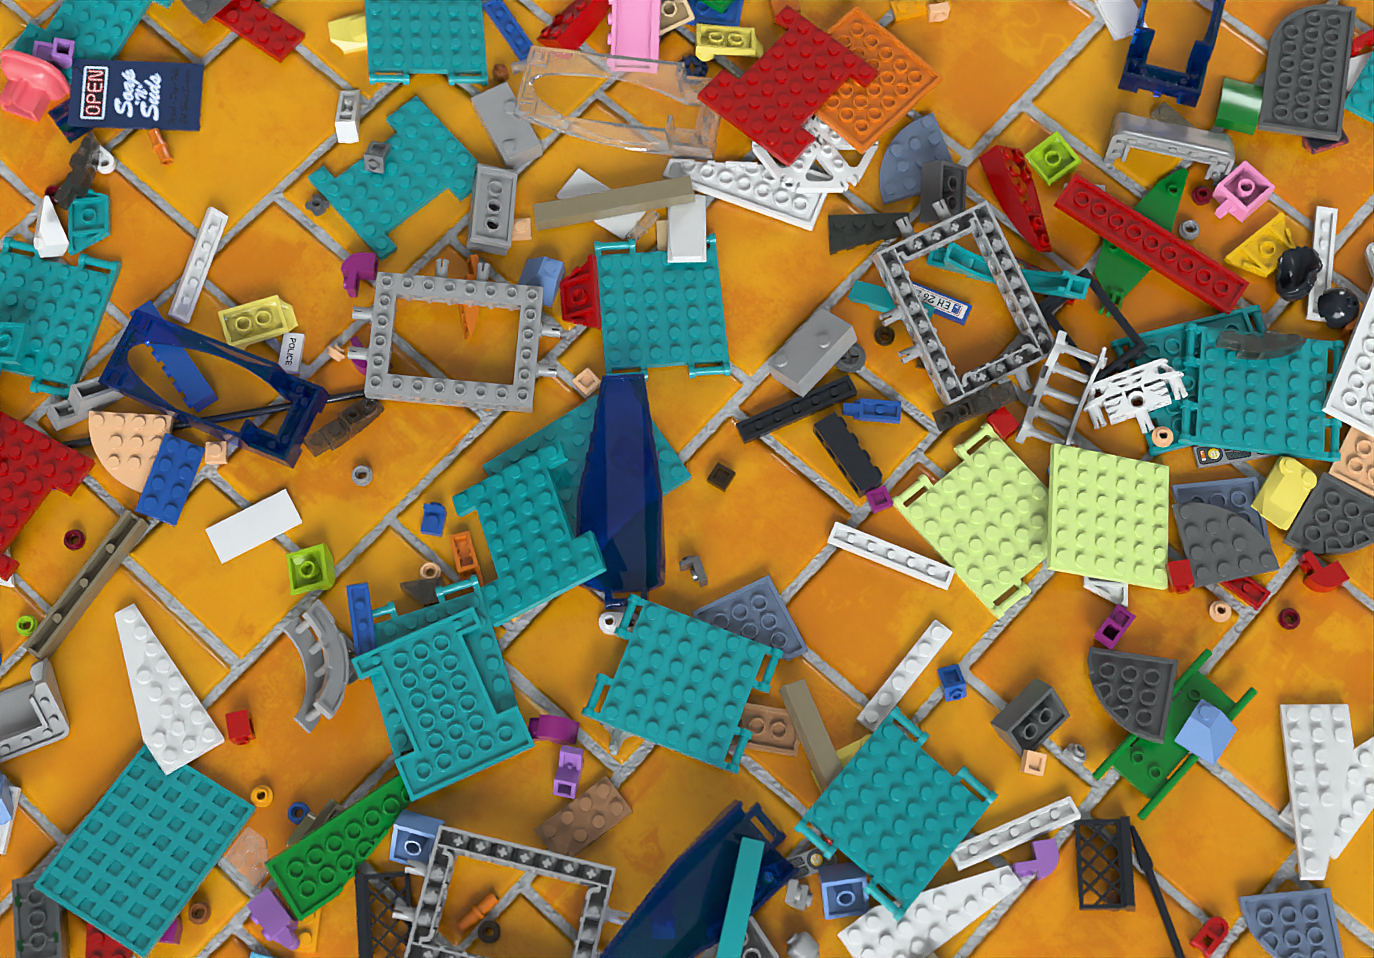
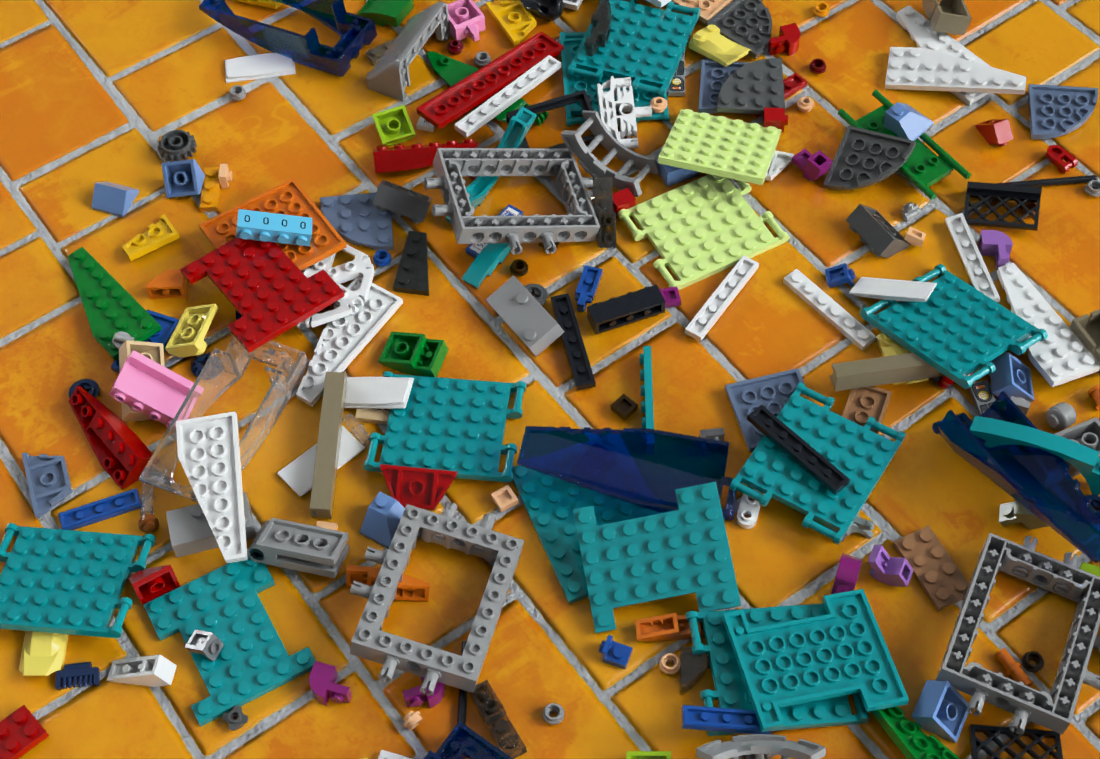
camera: 80 degrees left, 15 degrees down
(345, 66) = (79, 671): none -> dark blue piece
(433, 93) = (154, 582): none -> red slope
(557, 99) = (212, 463): none -> white wing
(682, 655) = (798, 450): none -> black plate
(729, 500) = (646, 390): none -> teal plate
(744, 256) = (413, 354): none -> green slope
(852, 73) = (274, 227): none -> medium azure brick
(865, 190) = (382, 258): none -> blue plate
(937, 740) = (893, 289): none -> white piece
(1129, 268) = (507, 96): none -> white plate
(1233, 848) = (995, 131): none -> red slope

